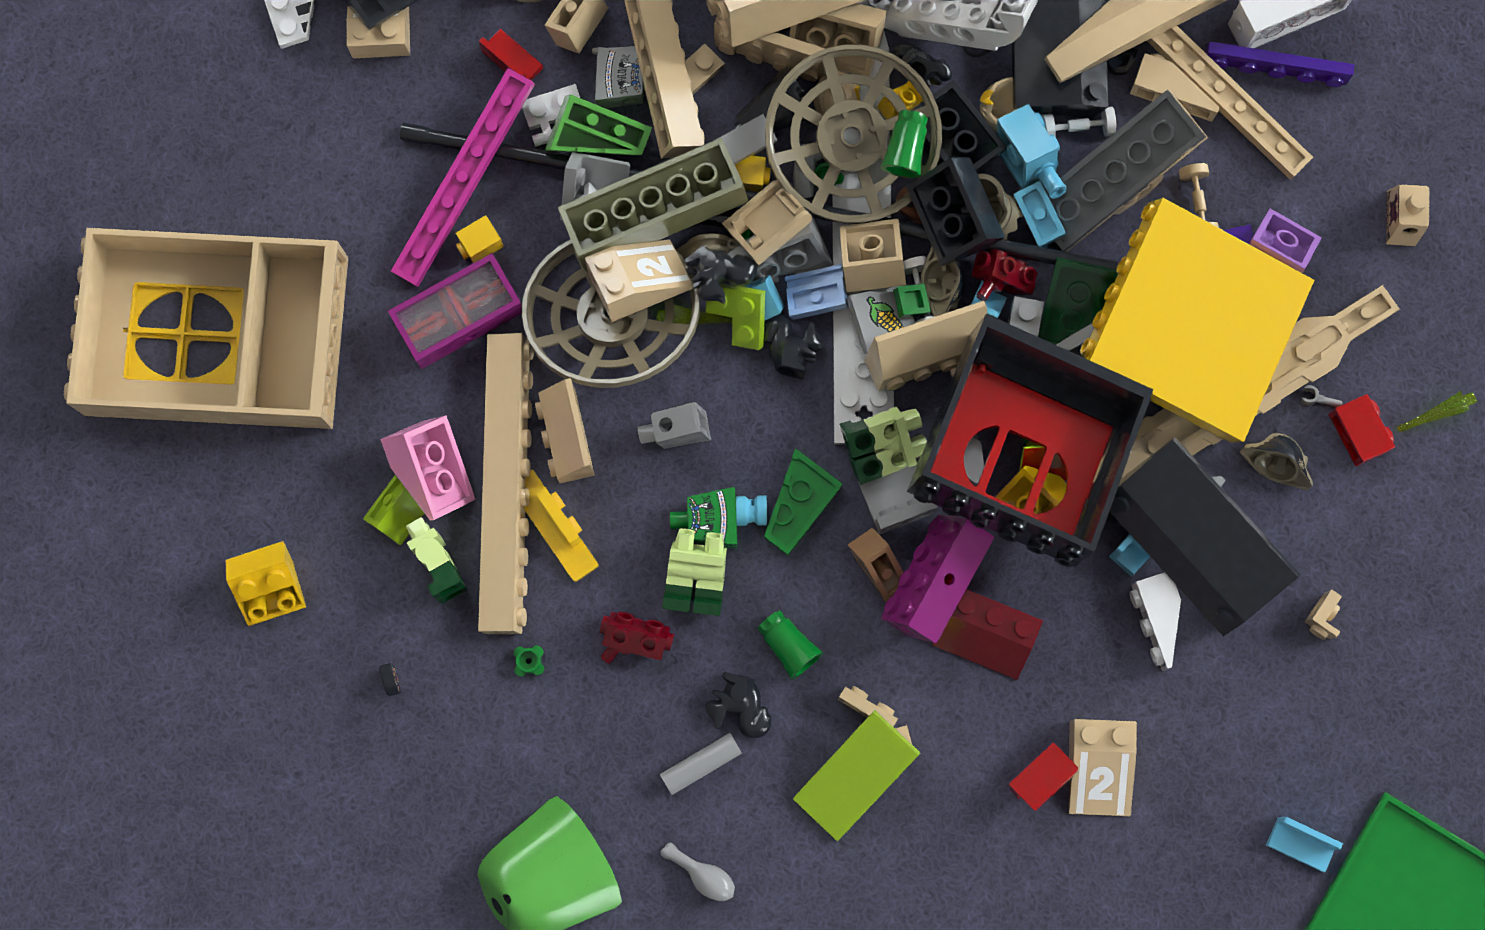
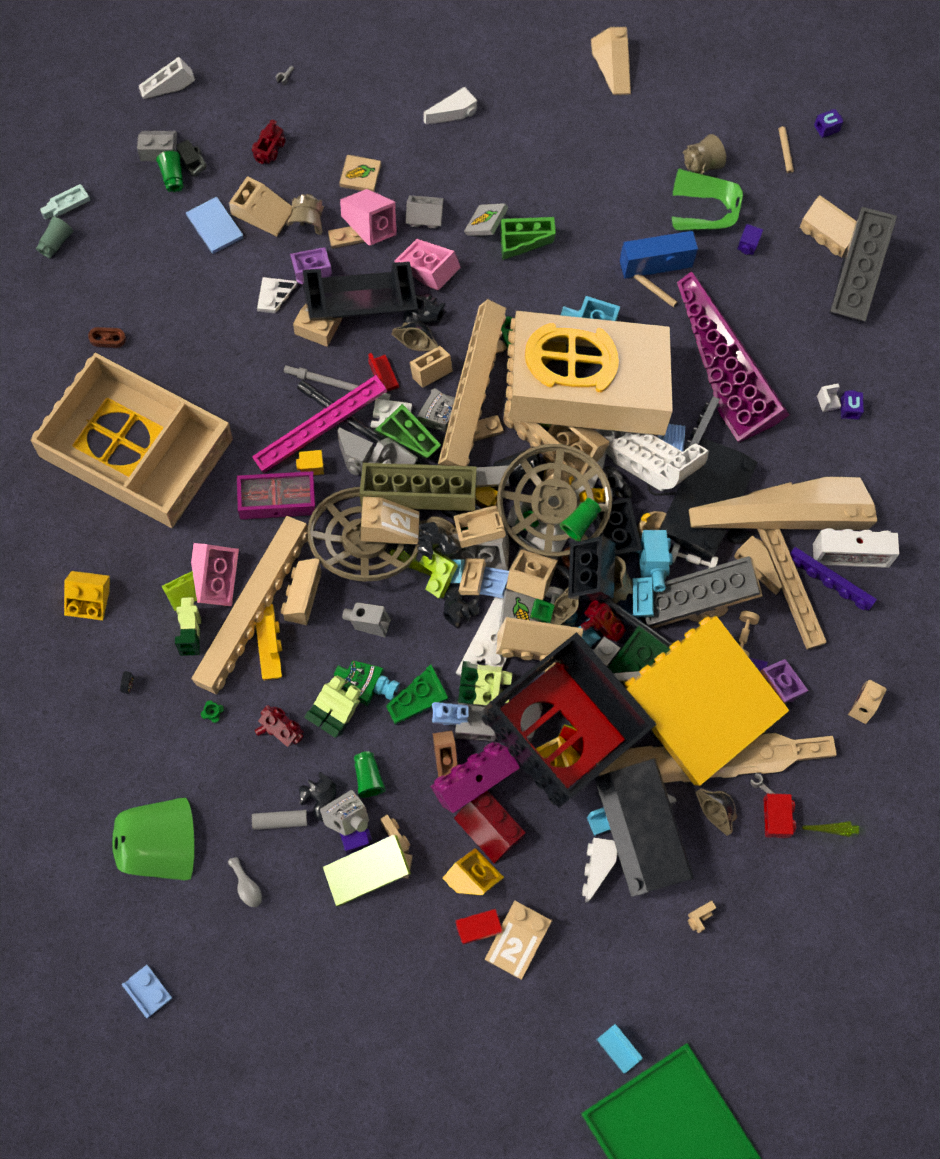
camera: 20 degrees right, 10 degrees down
(85, 191) = (108, 336): none -> copper plate
(397, 112) = (302, 373): none -> light grey bar
(534, 195) = (354, 451): none -> light grey slope
(790, 714) = (345, 814): none -> light grey torso
(791, 297) = (472, 576): none -> tan plate
(817, 739) = (356, 841): none -> dark purple brick
(858, 505) = (449, 713): none -> light blue hips
(999, 710) = (472, 874): none -> yellow slope

